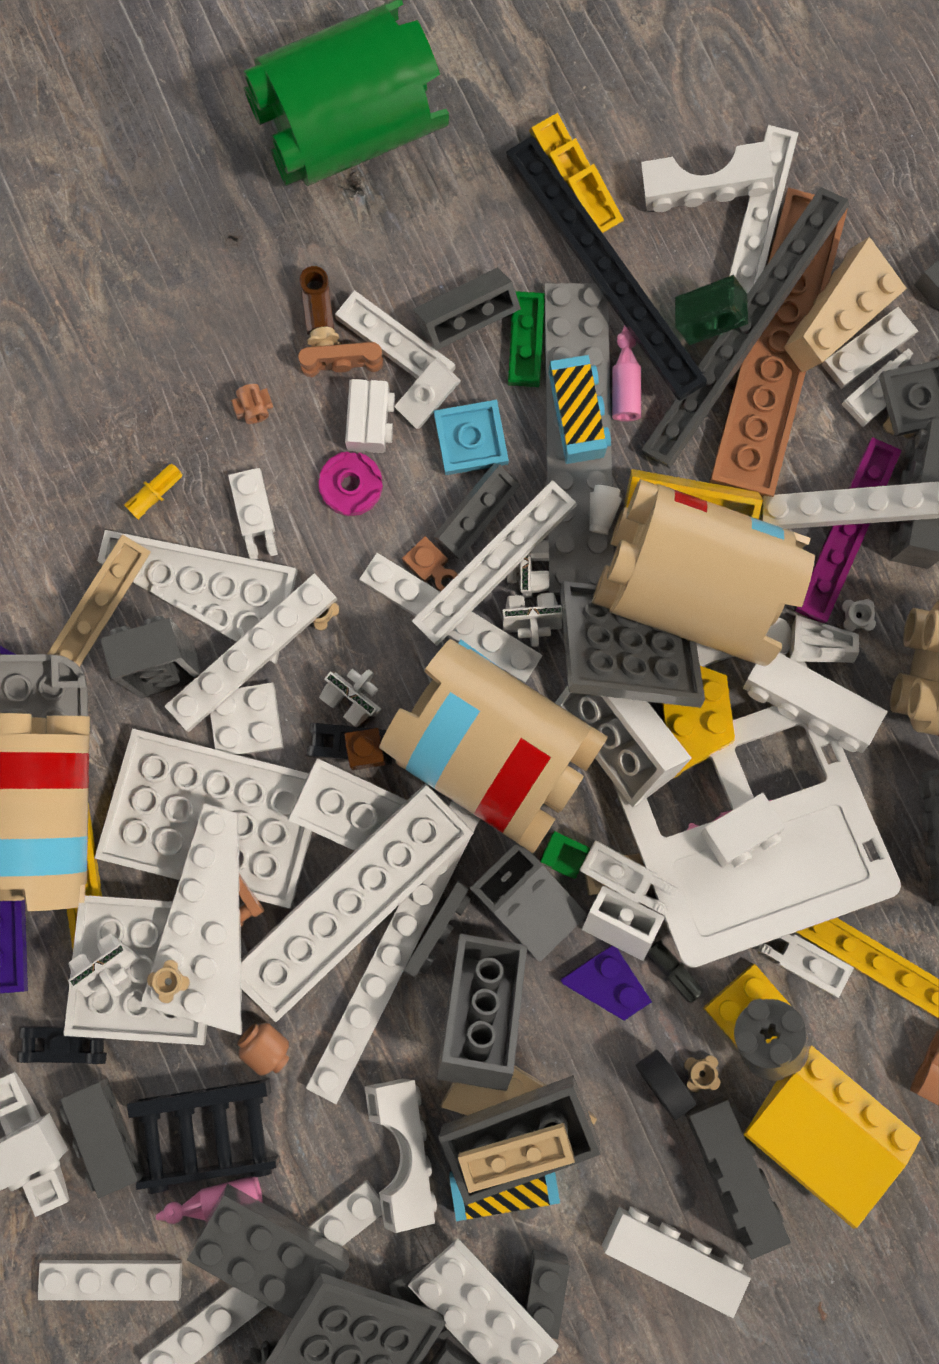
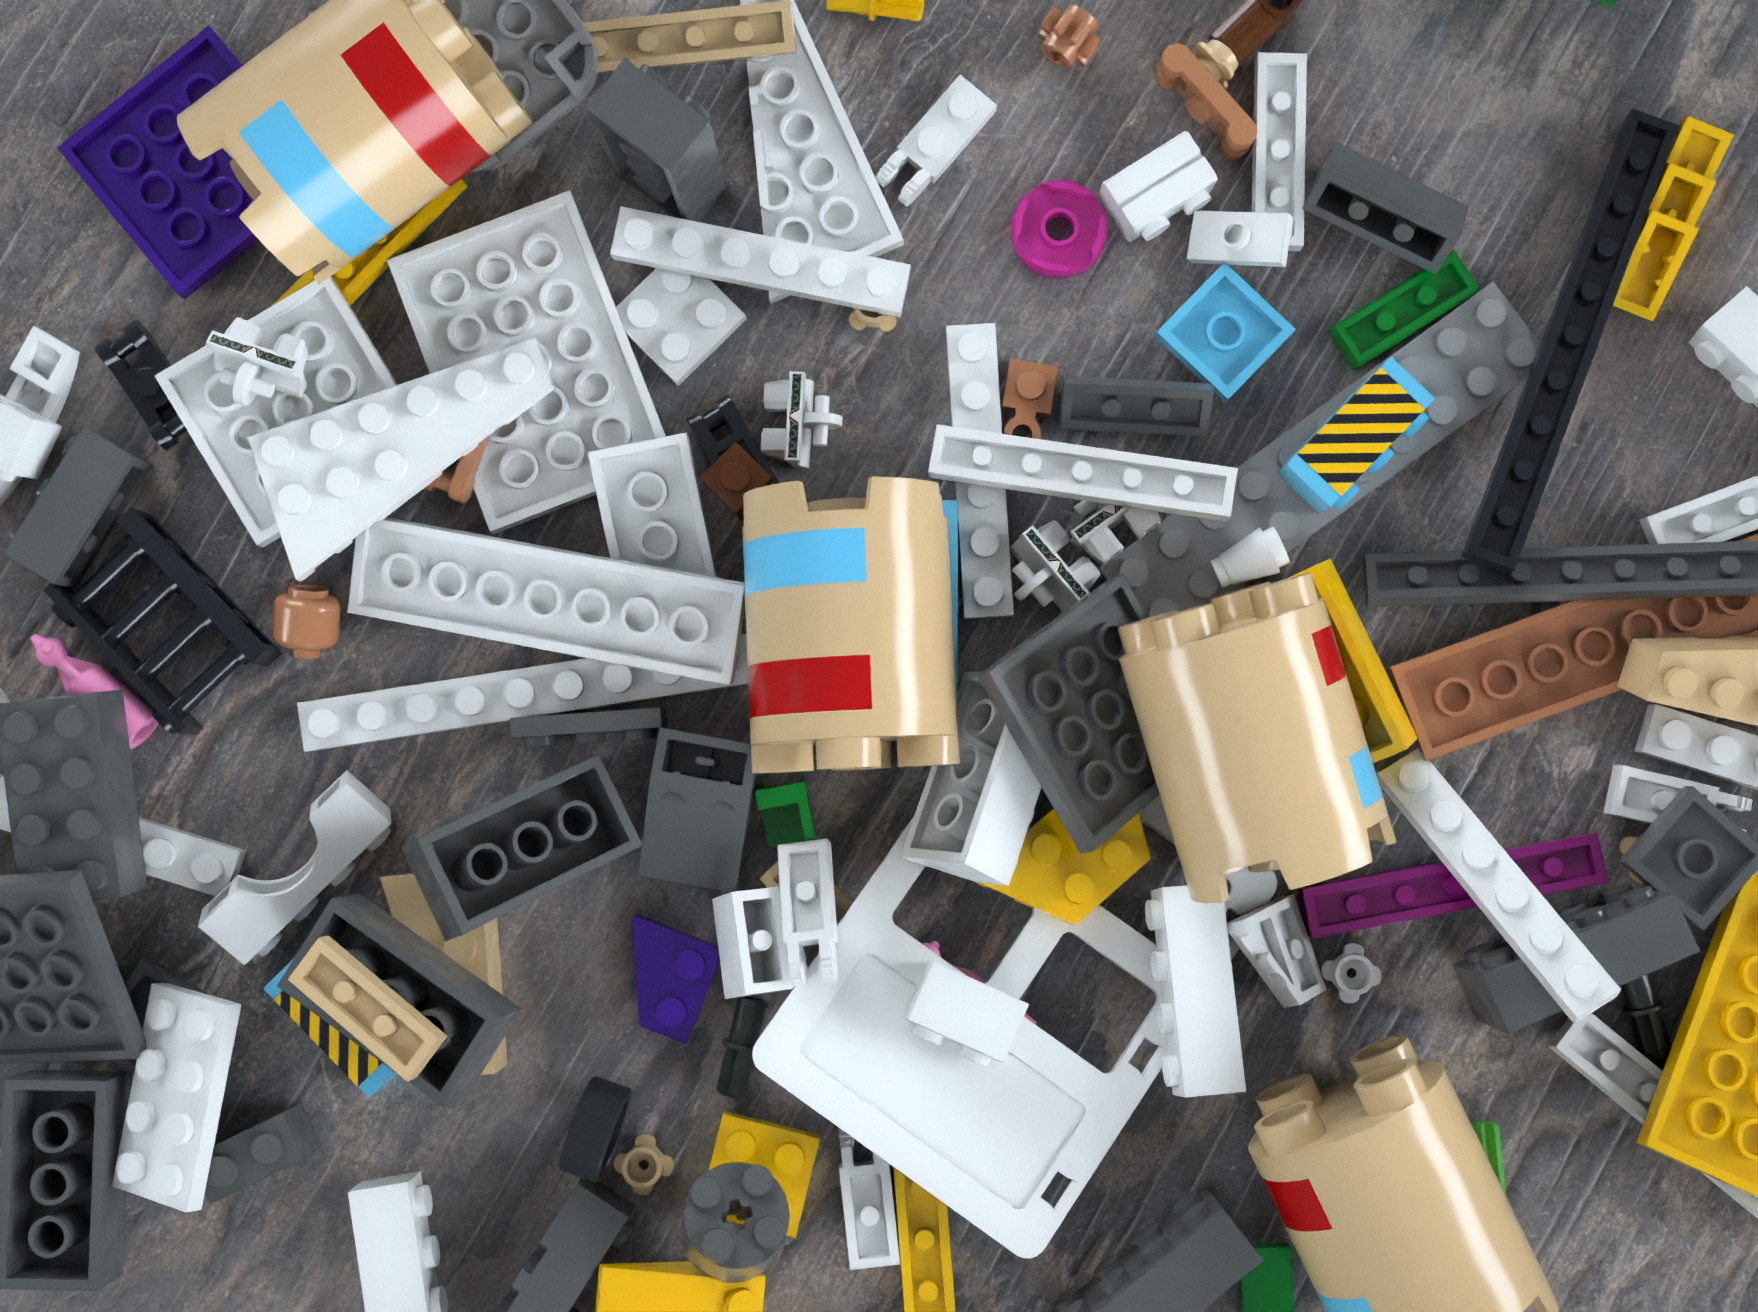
camera: 65 degrees right, 5 degrees up
(165, 991) = (279, 445): tan plate -> none
(626, 381) = (1440, 473): bright pink wheel -> none
(711, 310) = (1613, 512): clear green brick -> none

